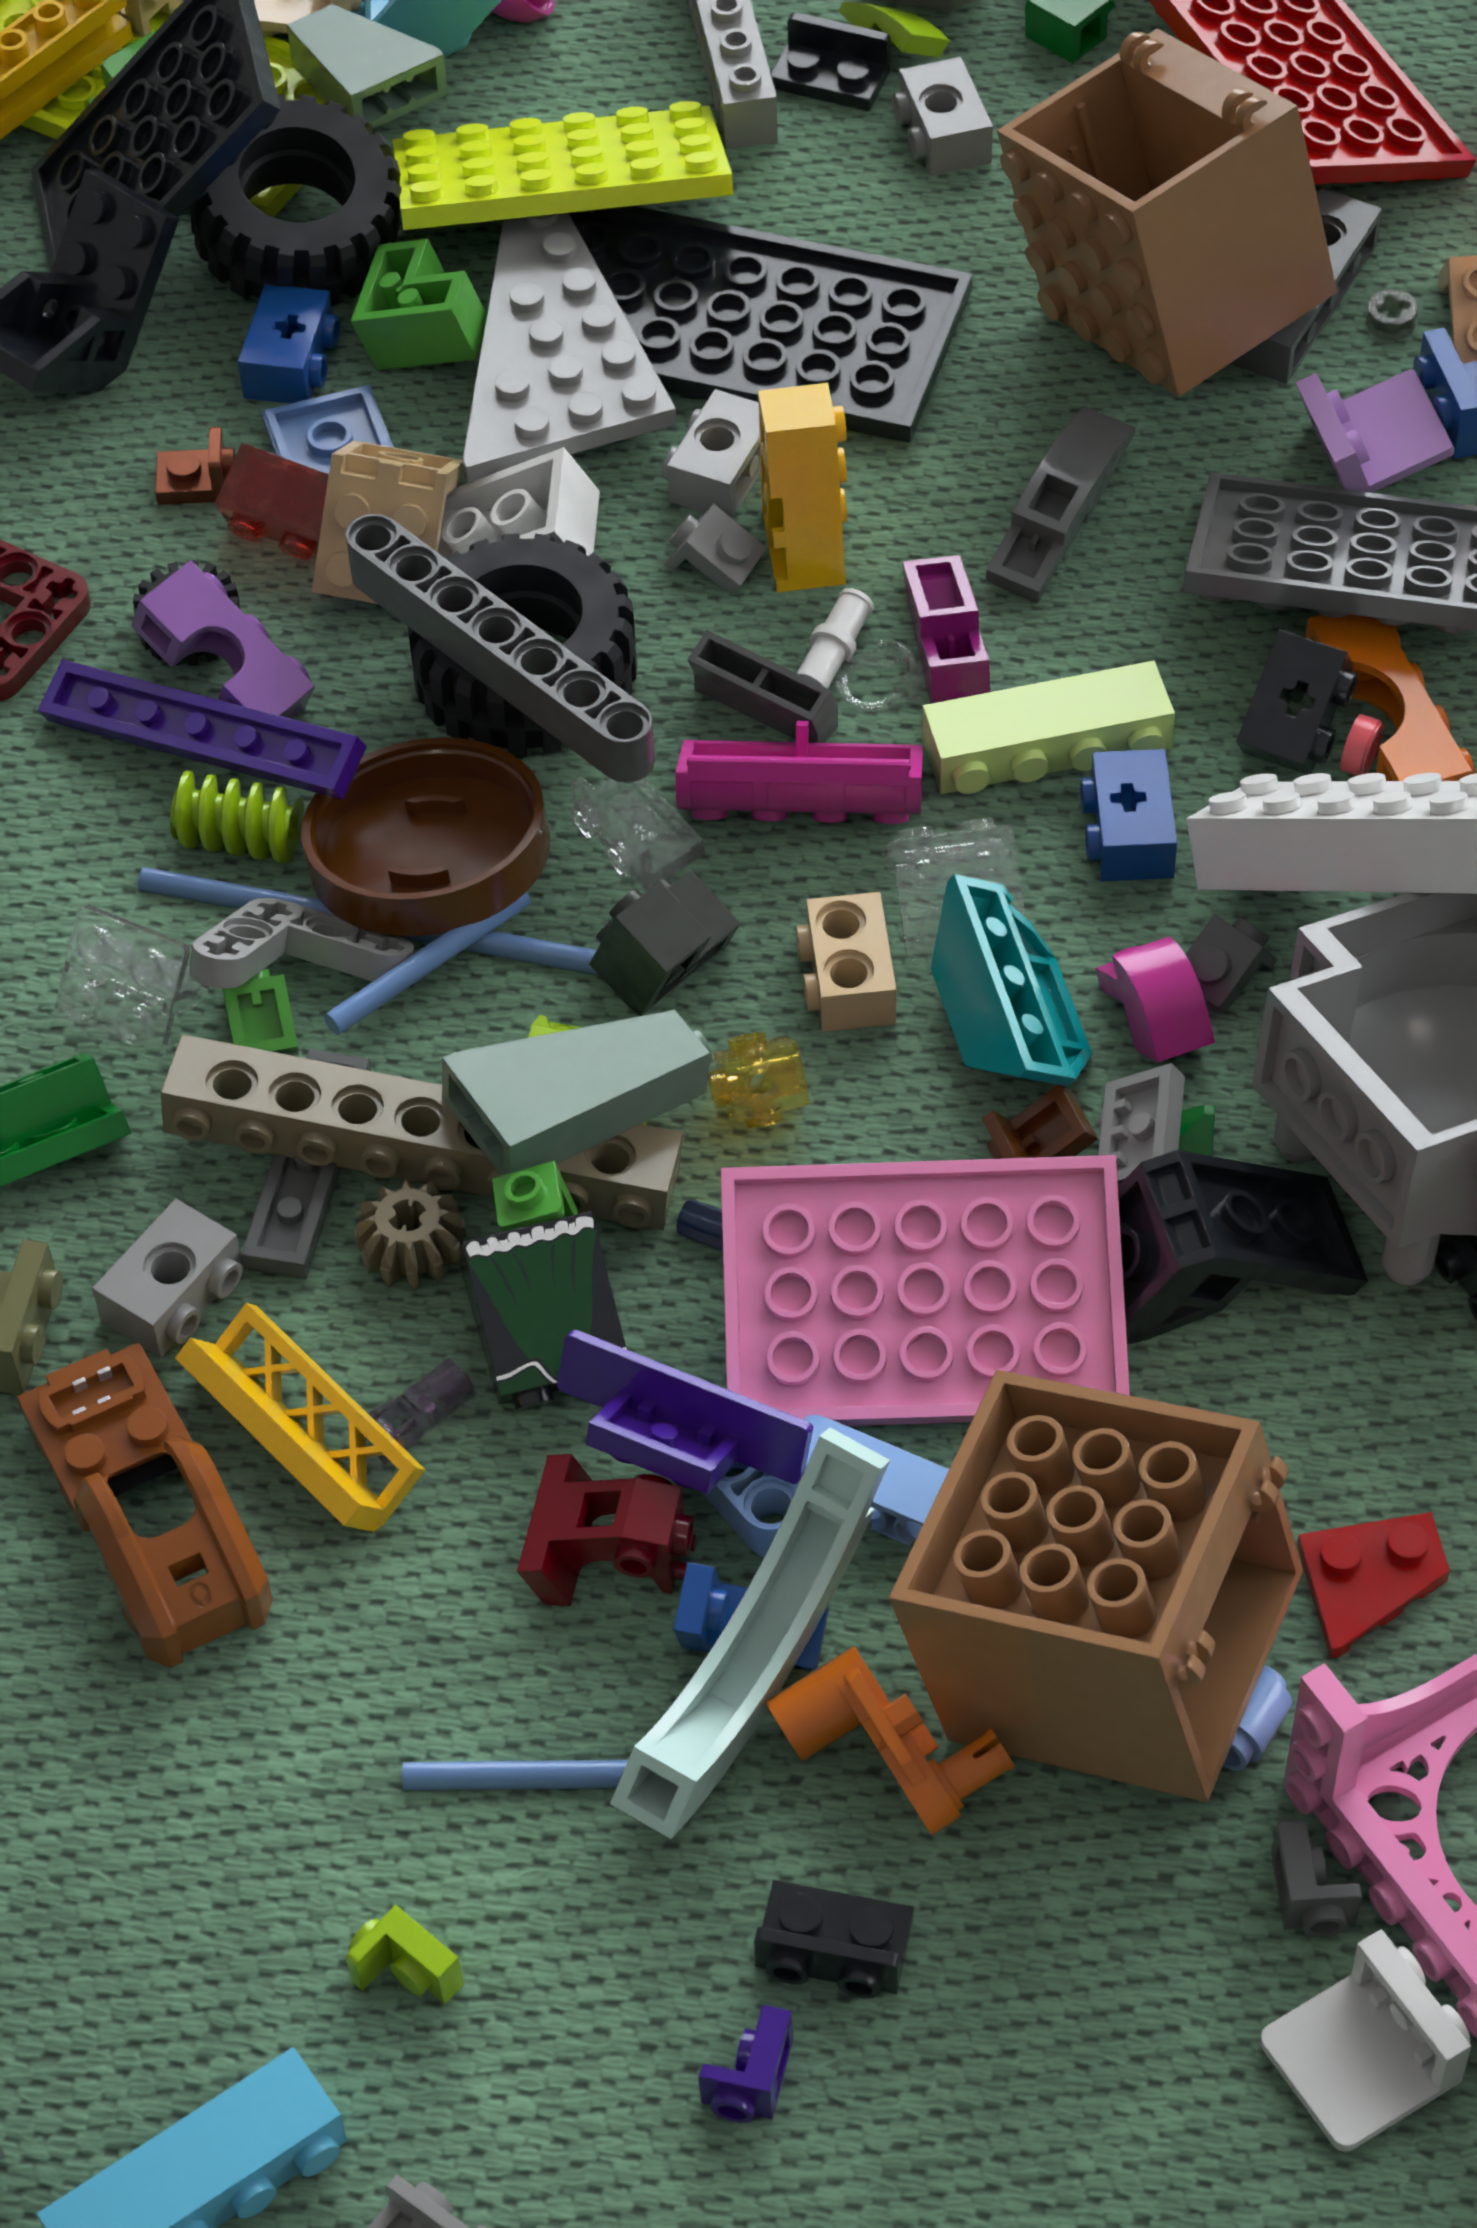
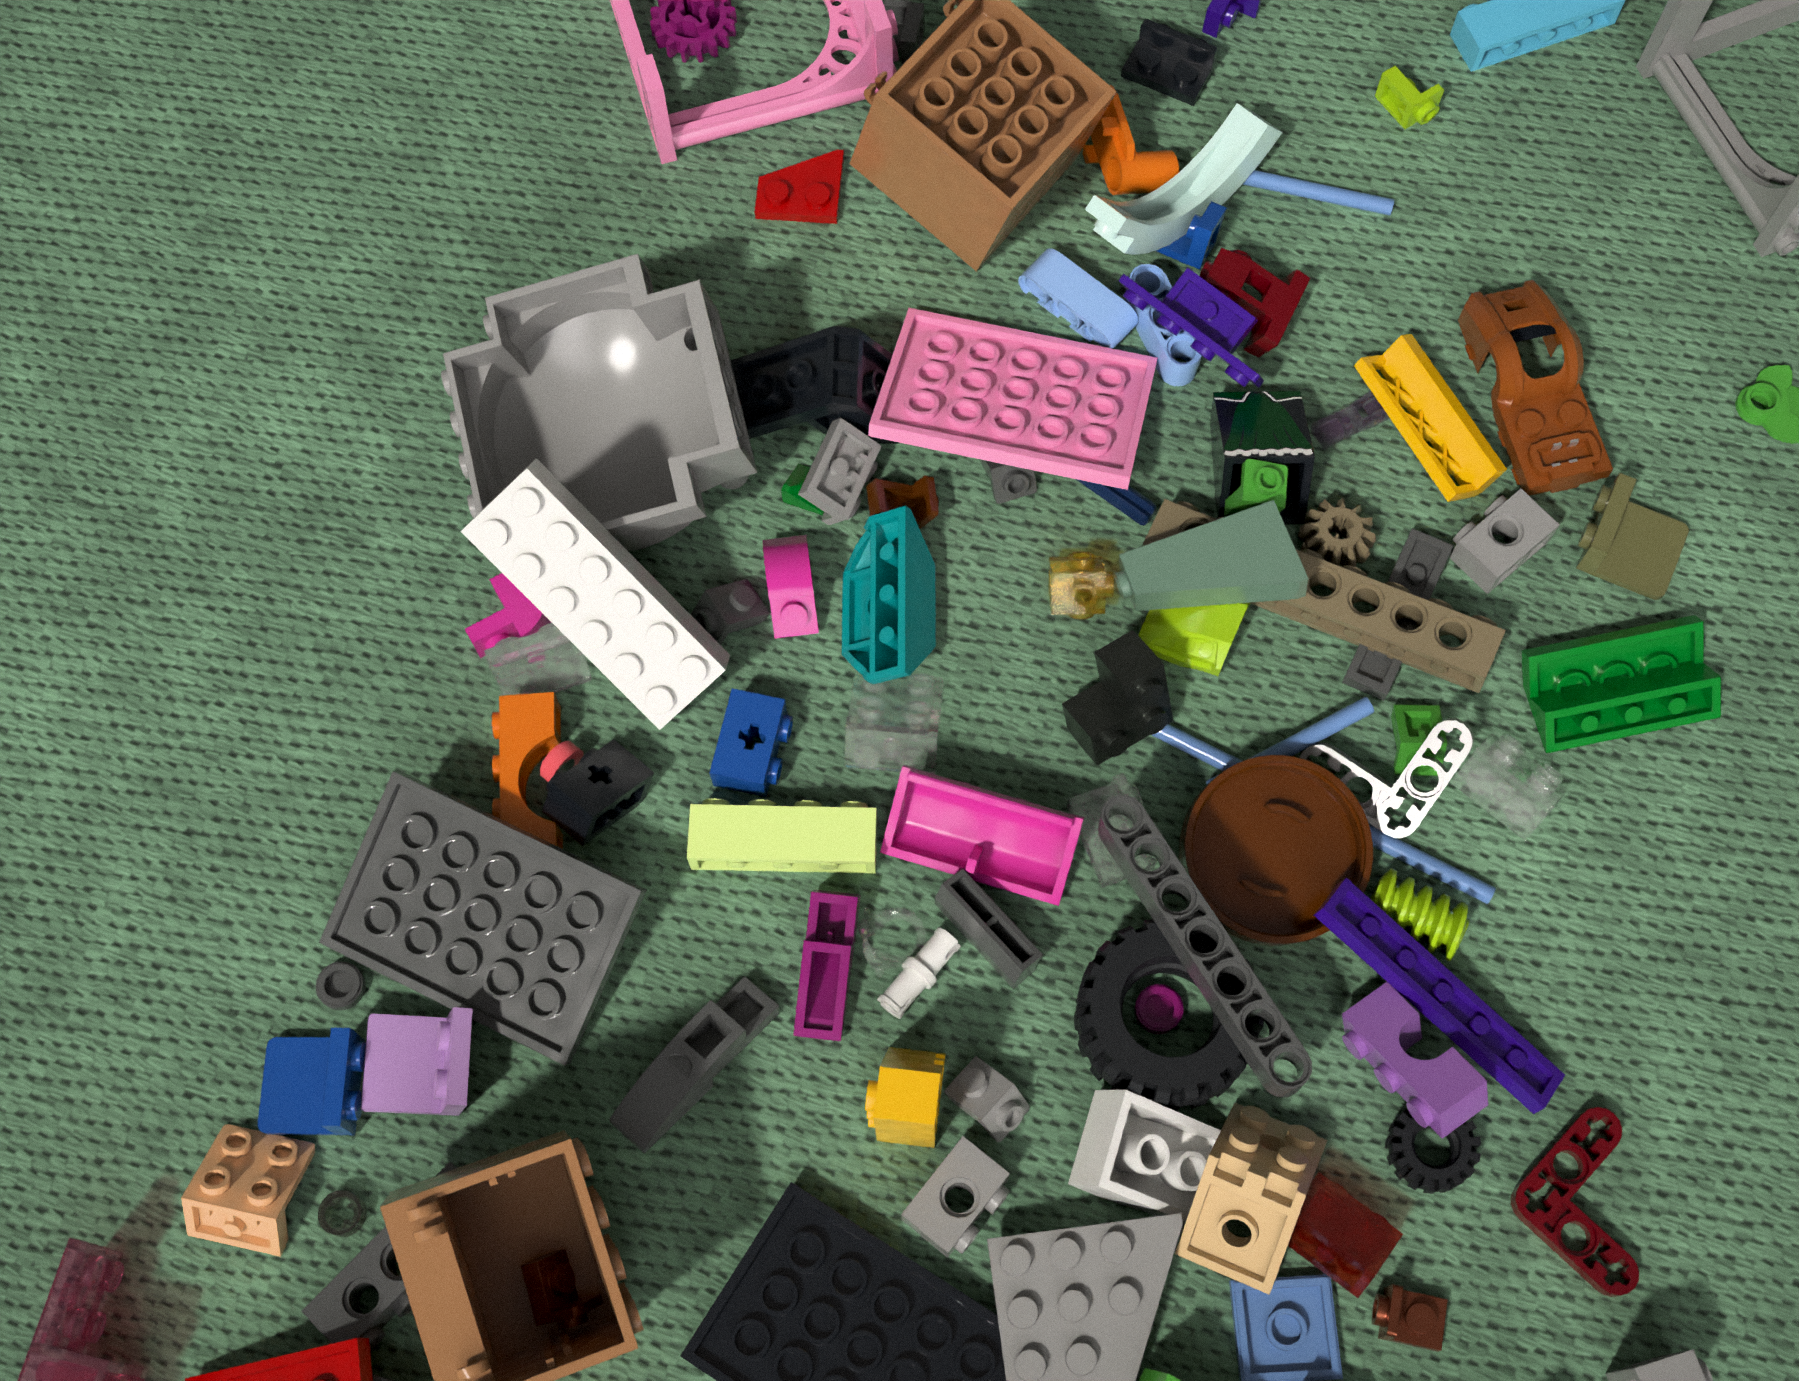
camera: 165 degrees left, 15 degrees up
(849, 962) = (983, 670): tan brick -> none

